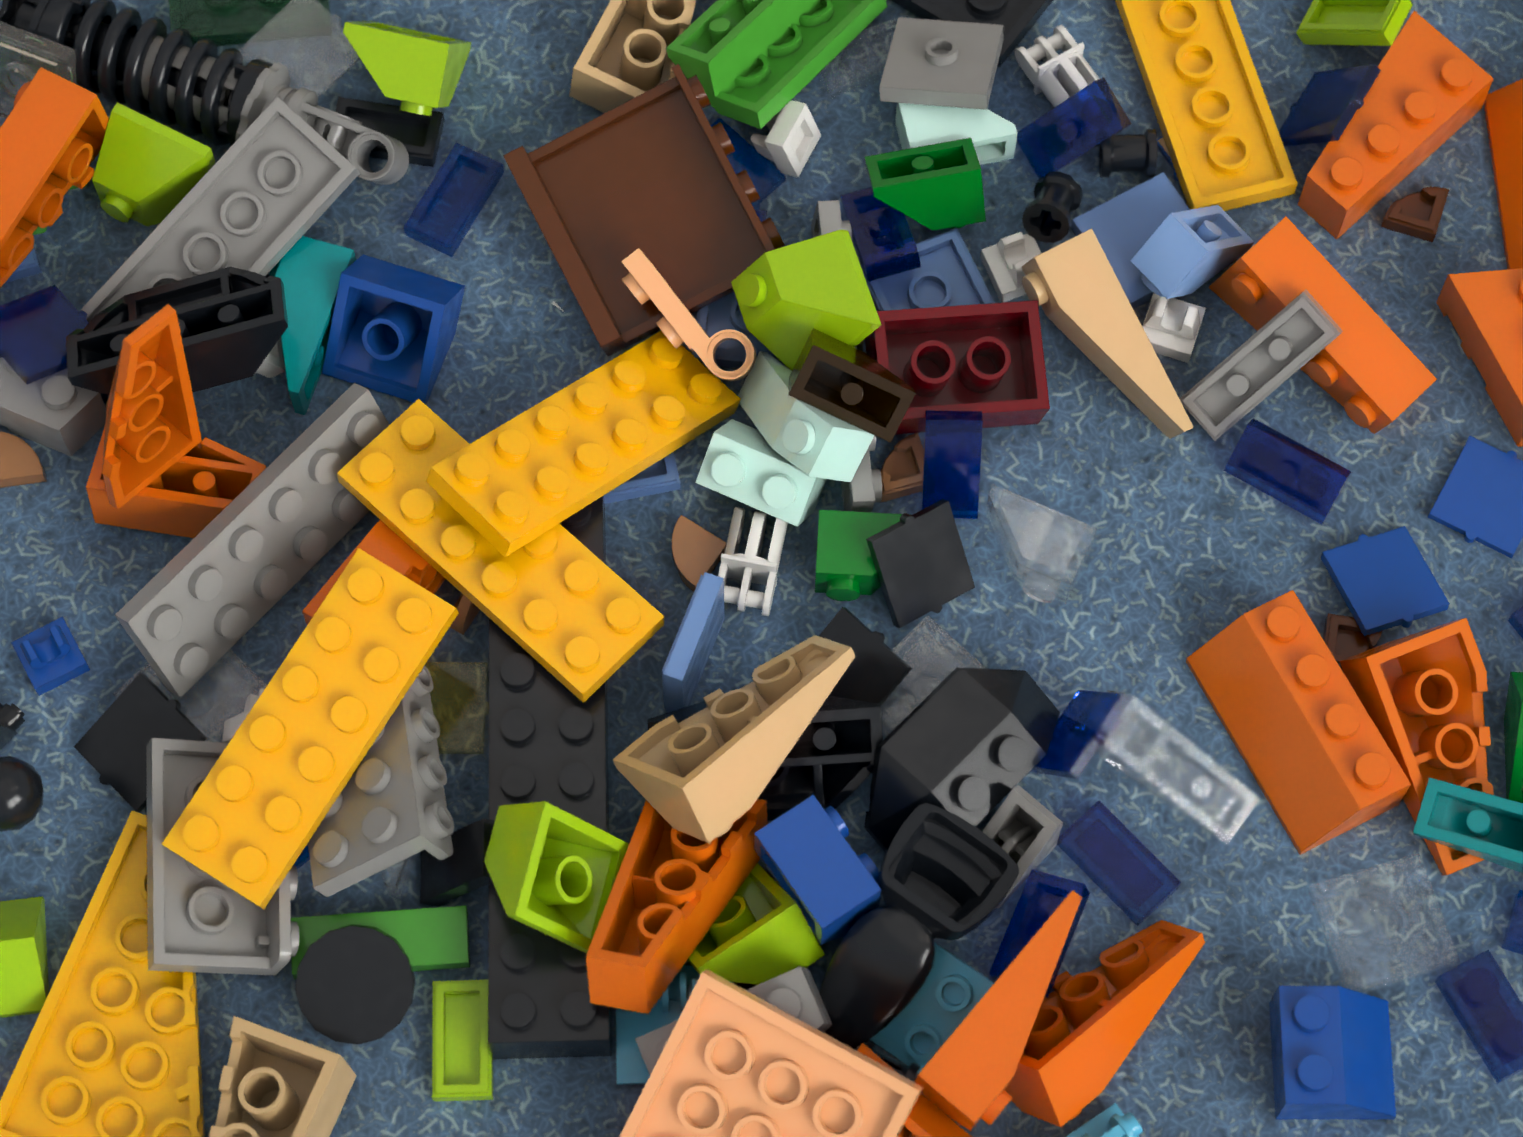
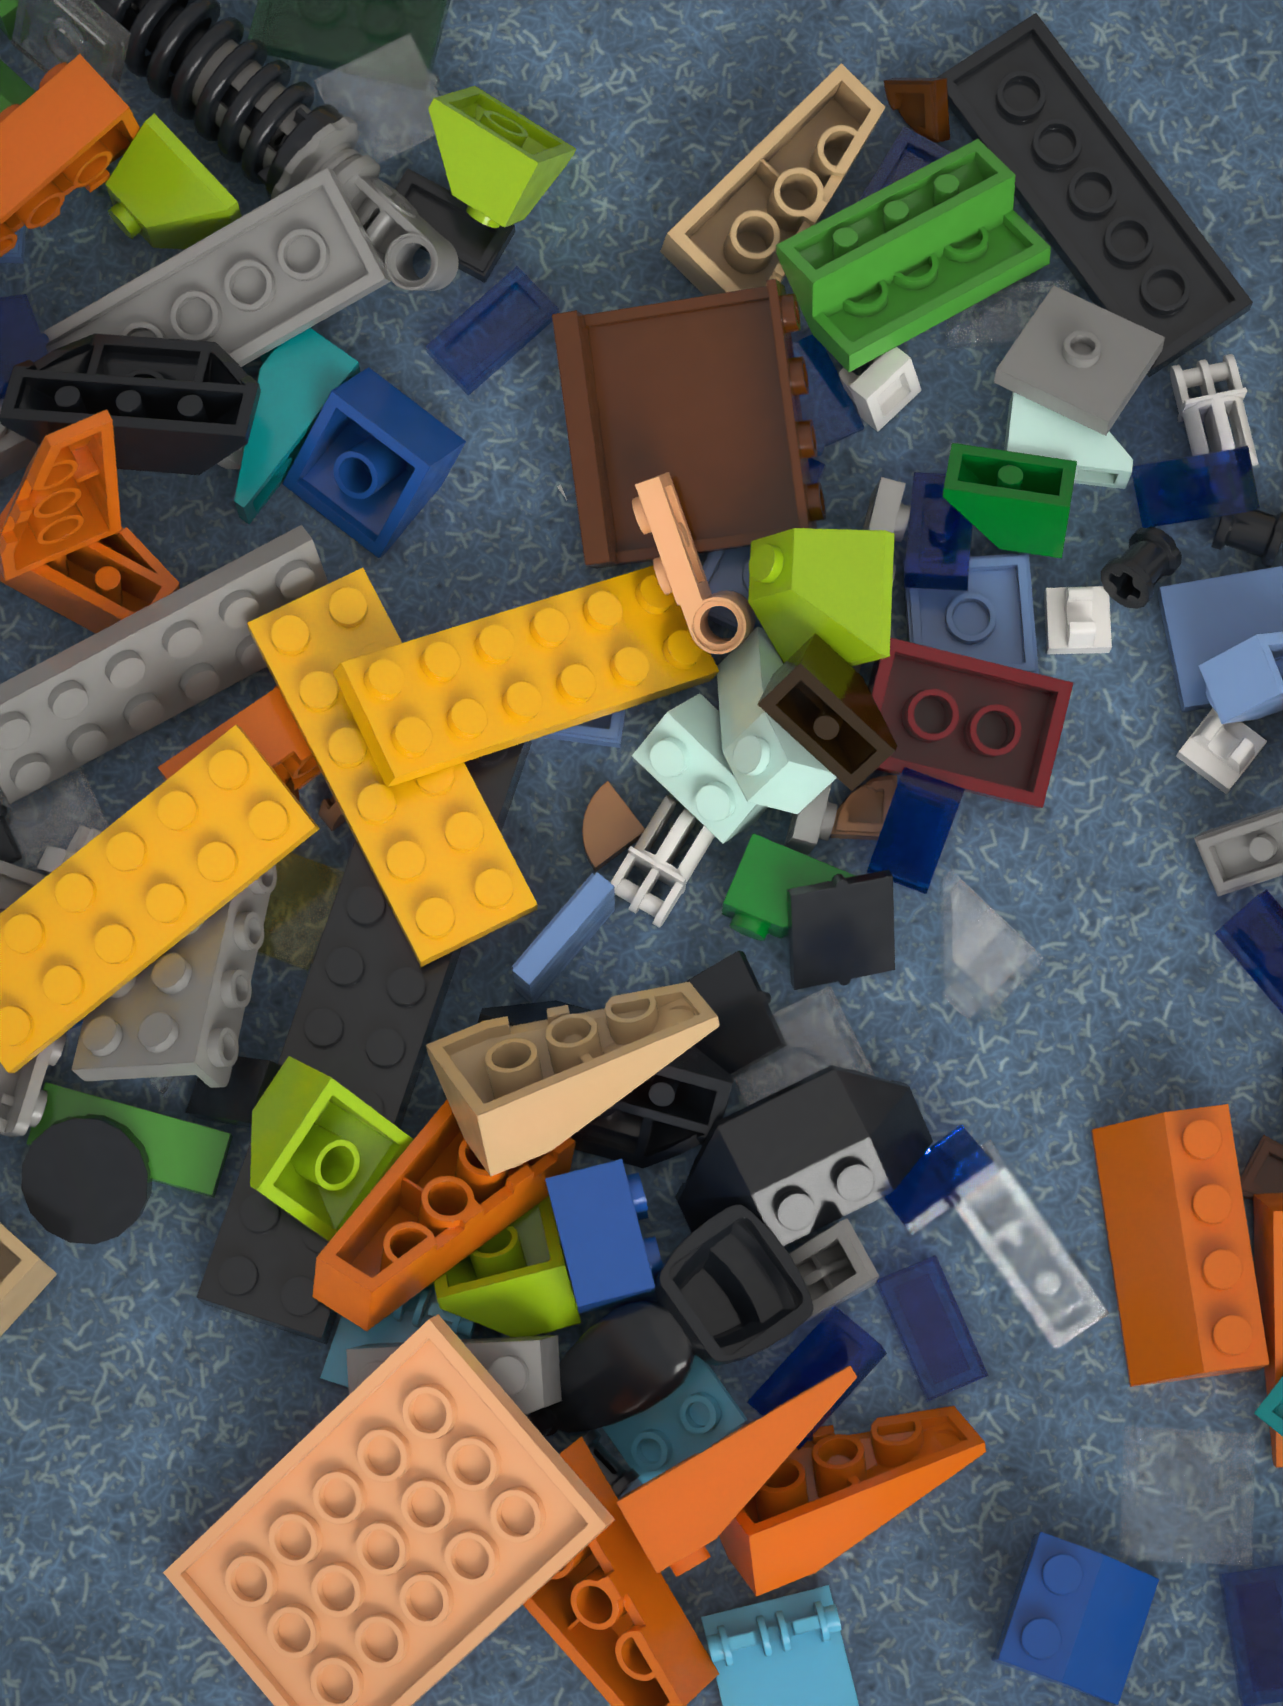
camera: 20 degrees right, 10 degrees up
(460, 1041) = (173, 1275): lime tile -> none
(1093, 311) = (1130, 701): tan wedge -> none

